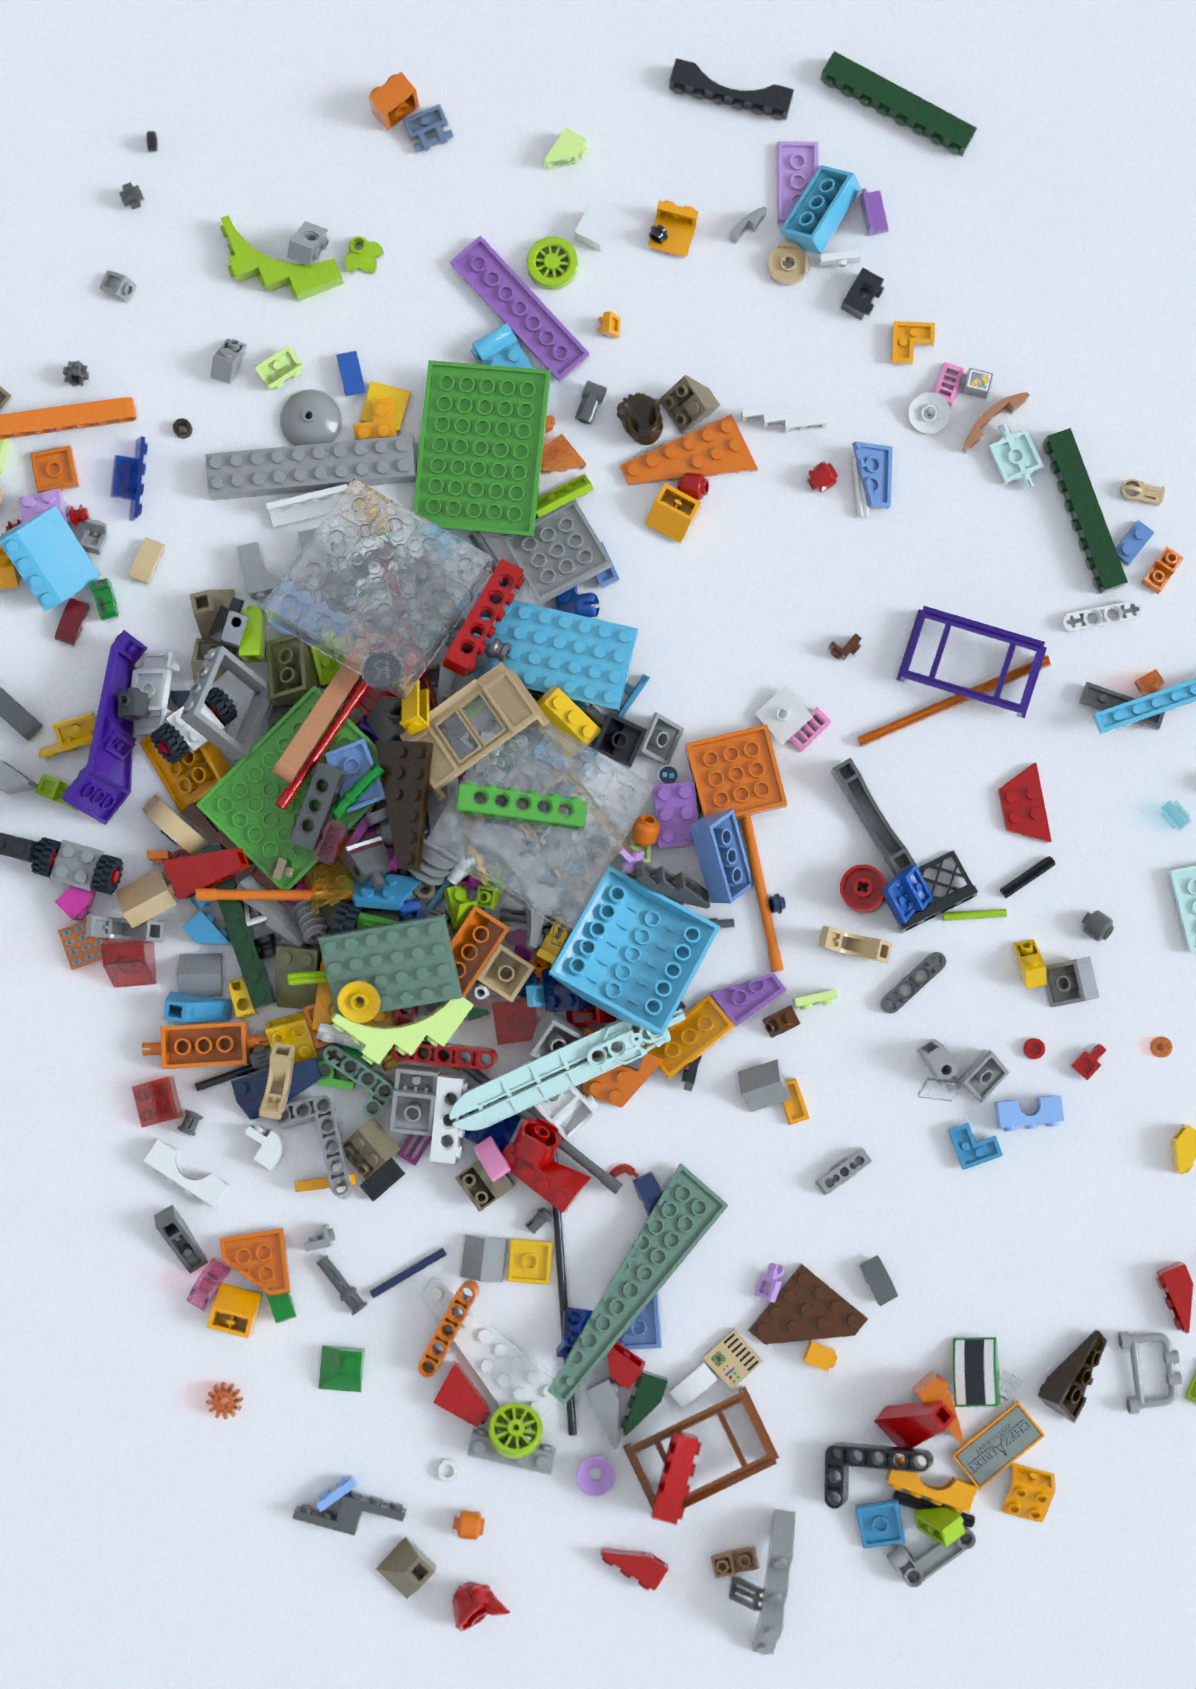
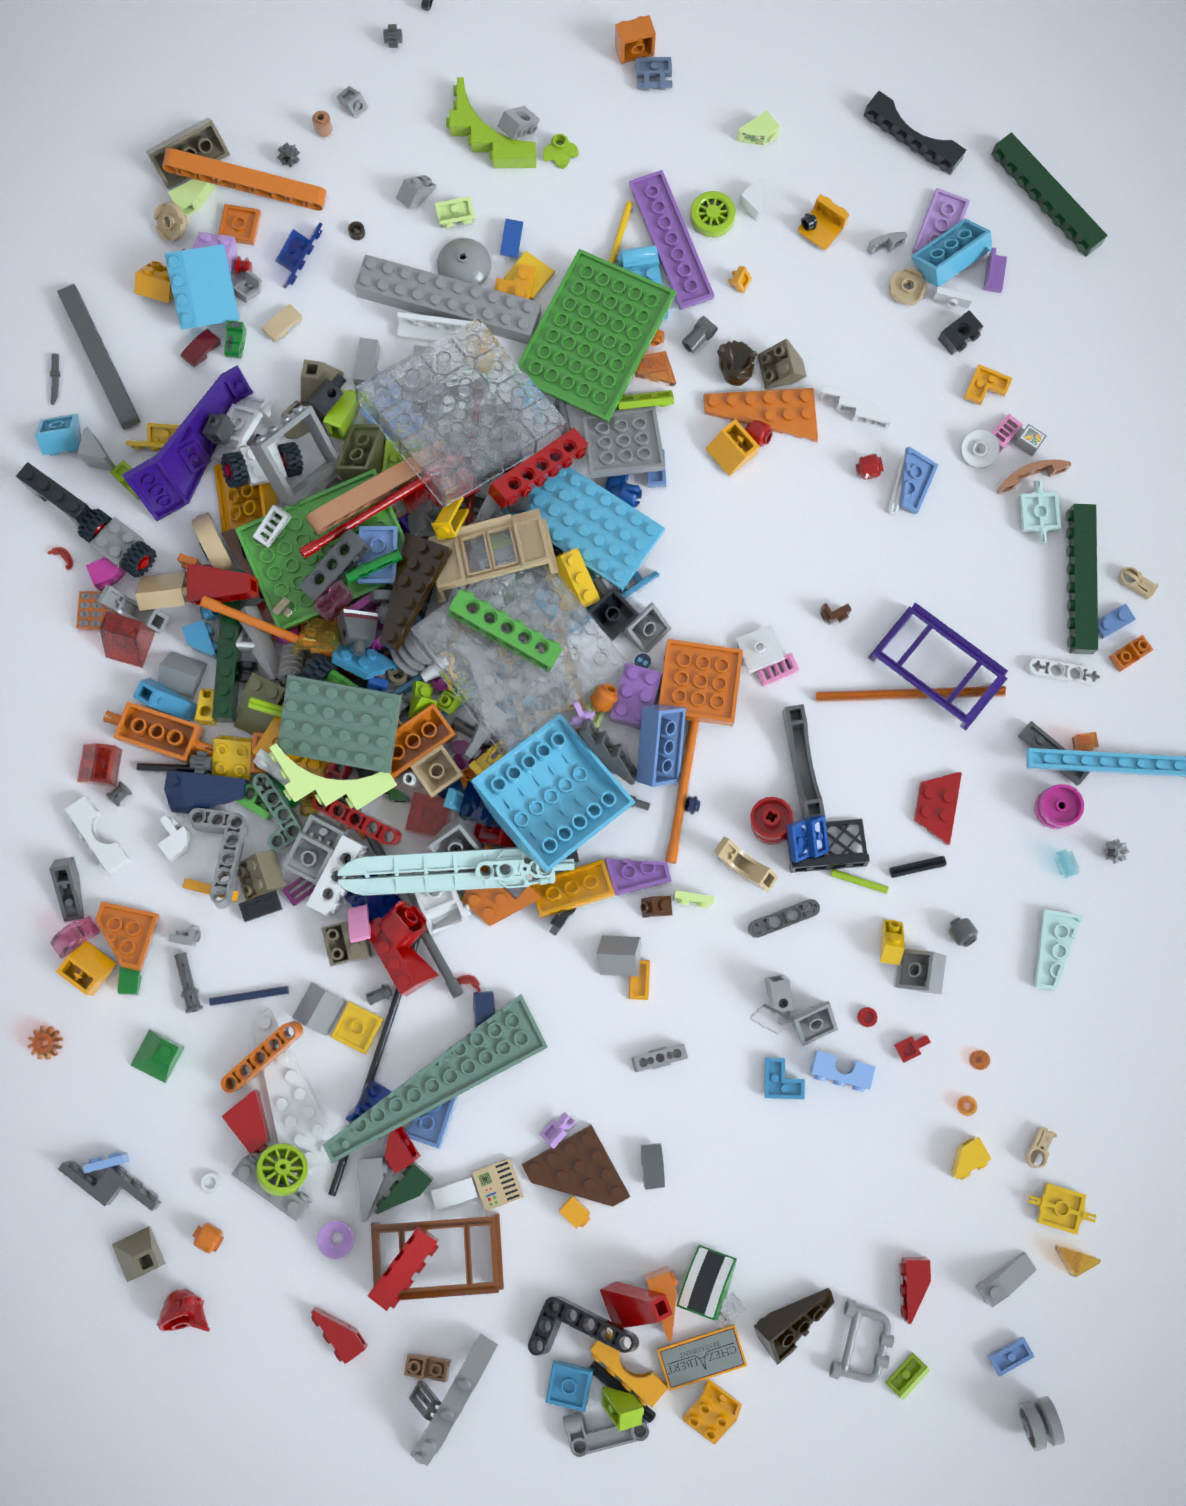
camera: 15 degrees right, 5 degrees down
(25, 897) = (64, 554): none -> clear red piece
(97, 324) = (322, 123): none -> nougat brick
(226, 785) = (277, 529): none -> white slope
(278, 1081) = (206, 784): tan arch -> none
(357, 1011) = (291, 743): yellow dish -> none
(381, 669) = (434, 471): clear tile -> none
(463, 323) = (620, 232): none -> yellow piece
(499, 650) = (541, 501): flat silver wheel -> none
(1145, 748) = (1069, 809): none -> dark pink wheel
(1171, 1097) = (973, 1105): none -> clear orange plate

